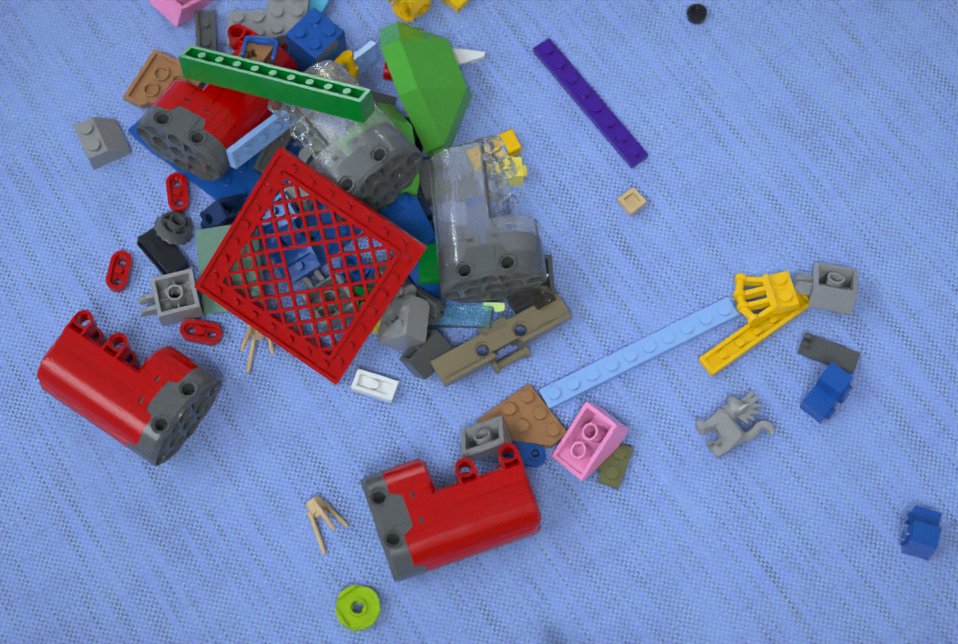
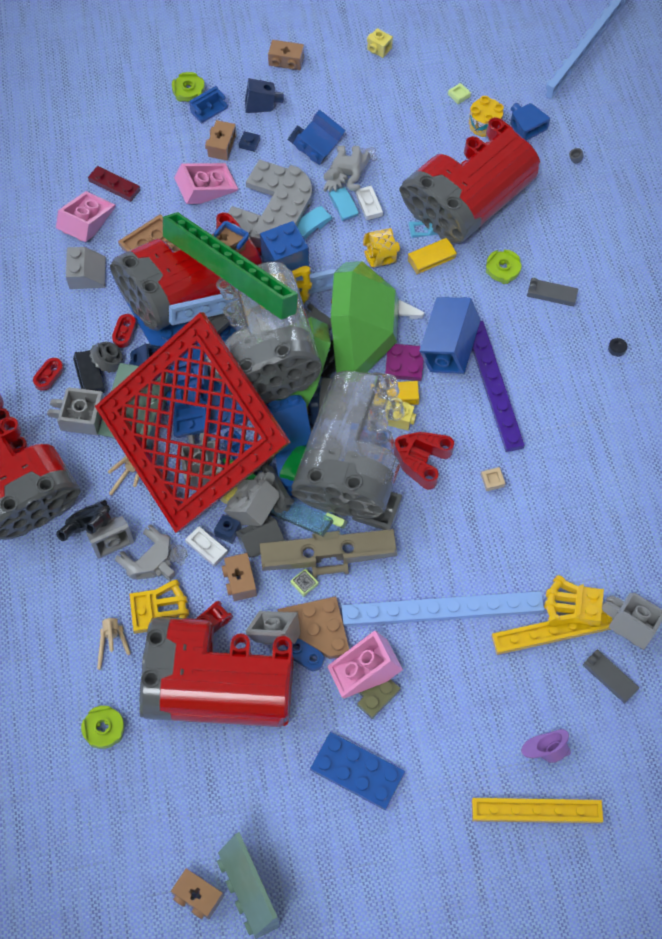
camera: 20 degrees right, 5 degrees down
(71, 82) = (84, 216): none -> bright pink slope
(84, 33) = (114, 183): none -> dark red plate
(202, 332) = (89, 447): red plate -> none
(206, 30) = (207, 214): dark grey hinge -> none
(244, 403) = (87, 519): none -> black connector
(272, 415) = (111, 537): none -> light grey slope
(329, 422) = (153, 562): none -> light grey connector
(342, 470) = (145, 605): none -> yellow plate
(349, 405) = (177, 554): none -> clear plate
(388, 365) = (227, 534): none -> dark blue plate
(418, 449) = (216, 615): none -> red piece
(419, 392) = (239, 566): none -> medium nougat brick
(488, 113) = (405, 362): none -> magenta plate
(490, 382) = (304, 582): none -> tile
(525, 67) = (450, 335): none -> brick
(531, 296) = (364, 522): clear smoke slope -> none
(544, 203) = (416, 454): none -> red connector
(627, 545) = (357, 771): none -> blue plate
(728, 430) = (490, 705): light grey animal -> none
(800, 445) = (548, 746): none -> medium lavender piece
(813, 510) = (536, 810): none -> yellow plate
(830, 389) = (596, 709): blue brick -> none
(921, 533) = (627, 873): blue brick -> none

